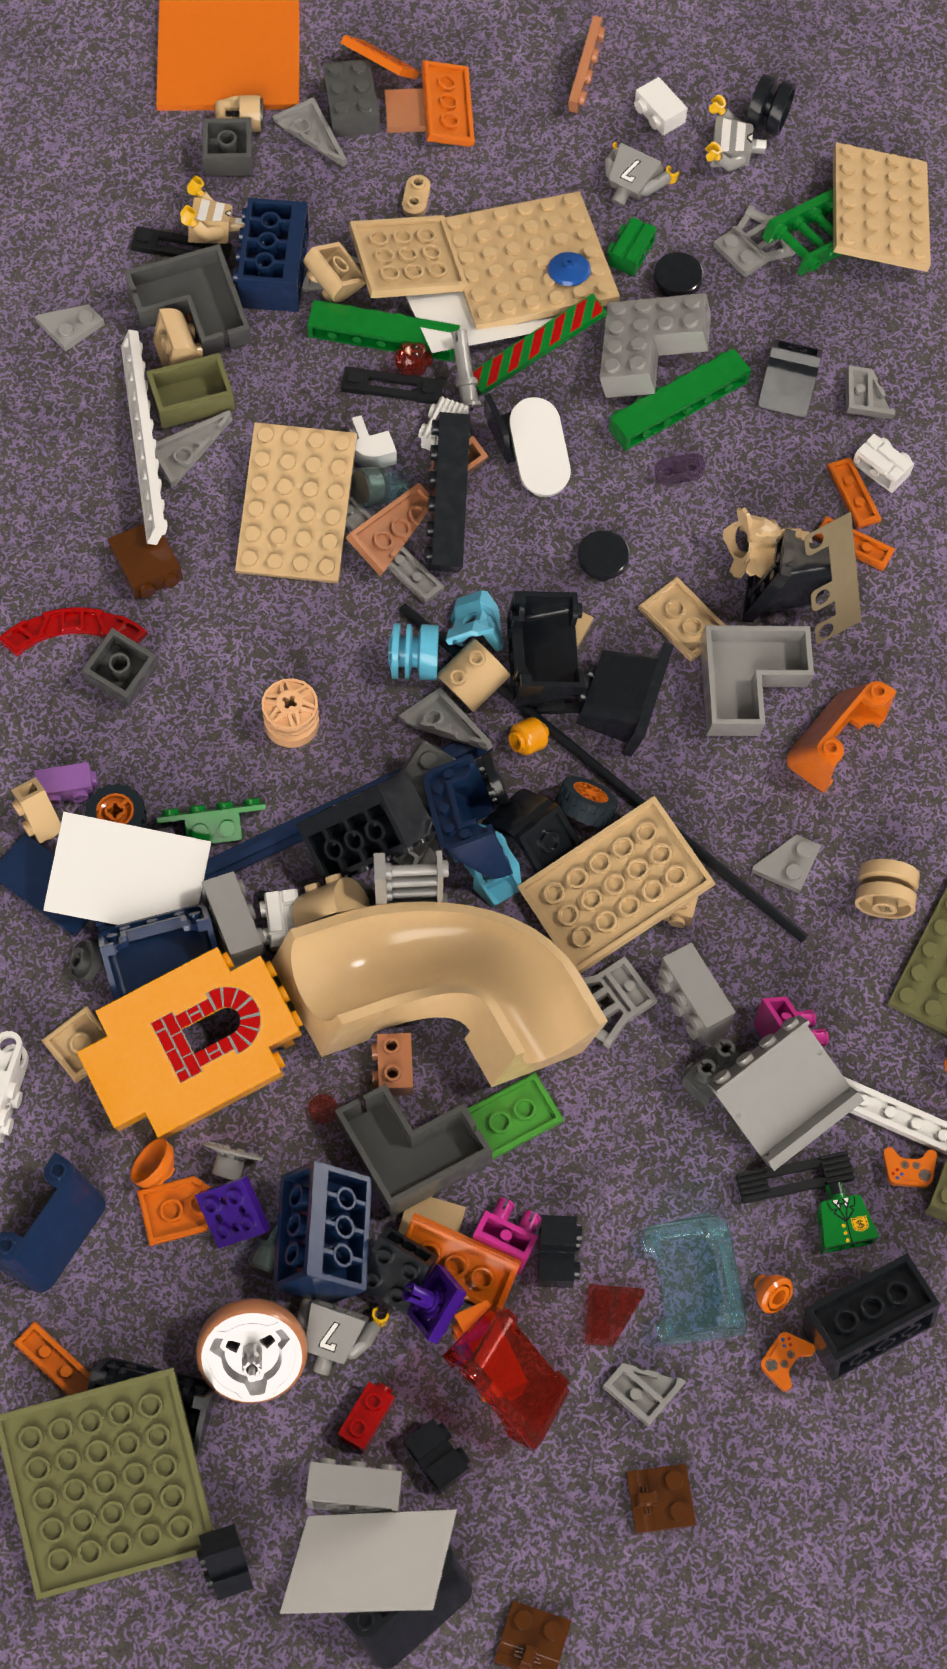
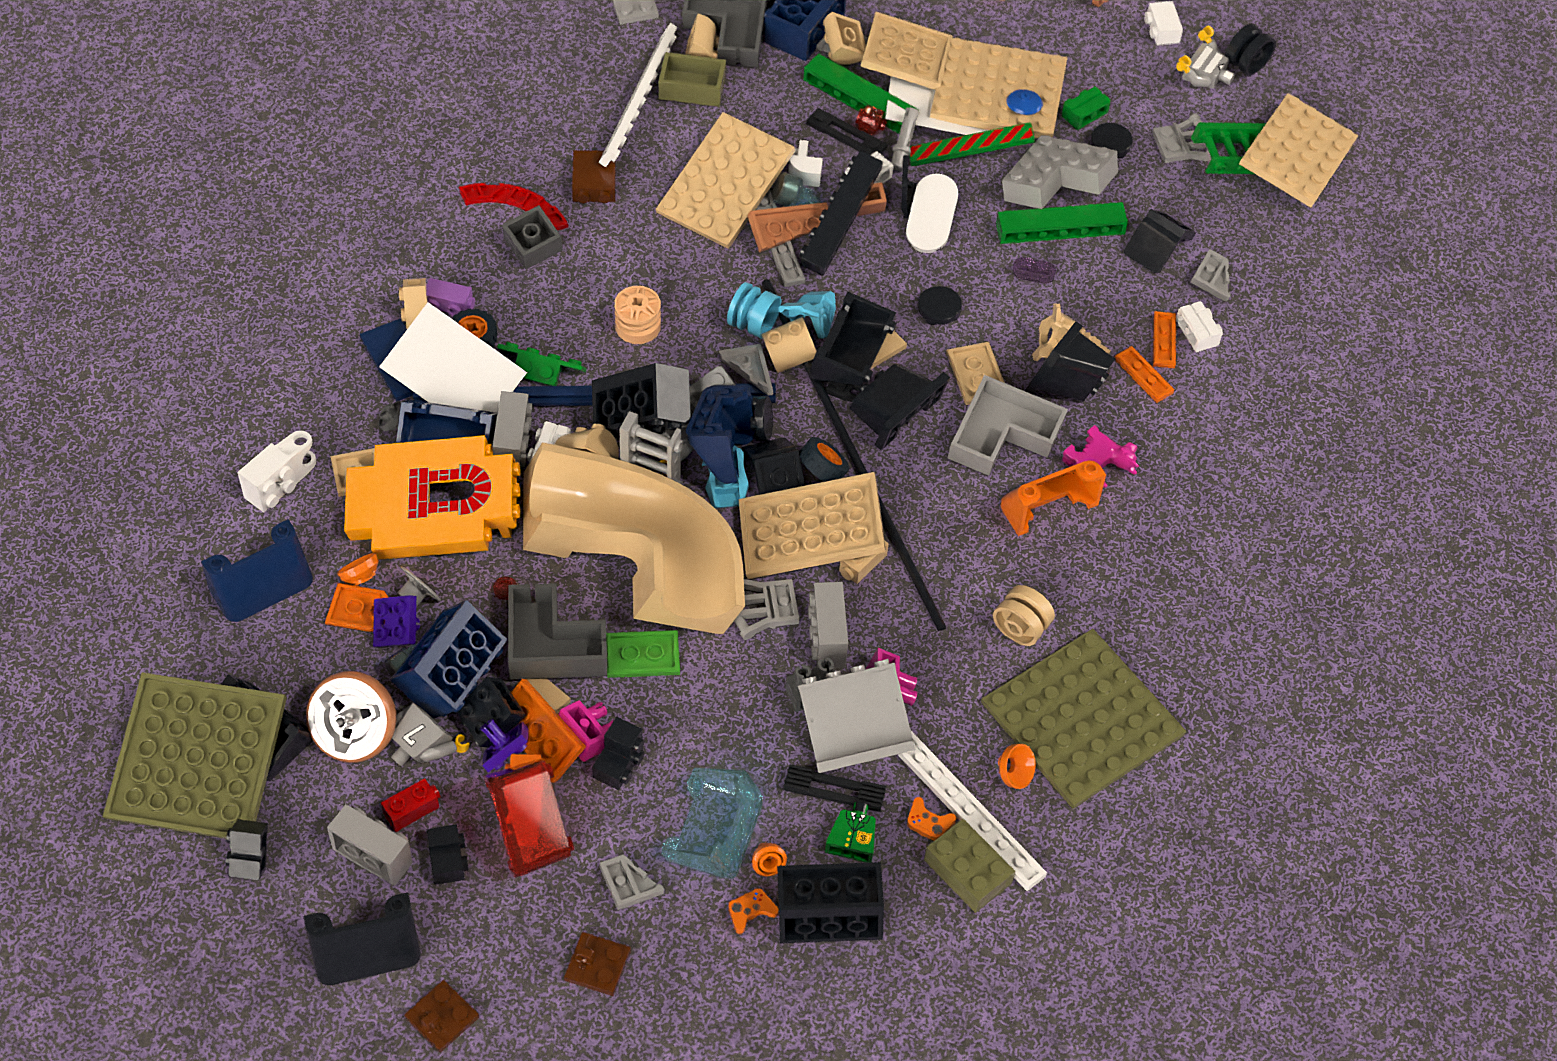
camera: 25 degrees right, 10 degrees down
(53, 1359) = (209, 660): orange tile -> none
(184, 448) = (664, 117): light grey wing -> none
(369, 1562) = (347, 891): white sticker -> none
(394, 1063) = (575, 578): nougat brick -> none
(416, 194) = (940, 16): tan plate -> none
(528, 736) = (808, 402): light orange head -> none
(609, 1312) = (635, 818): clear red wing -> none
(635, 174) = (1117, 60): light grey torso -> none
(789, 863) = (961, 571): light grey wing -> none
(844, 582) = (1110, 383): dark tan piece -> none
(860, 659) = (1103, 451): none -> dark pink animal

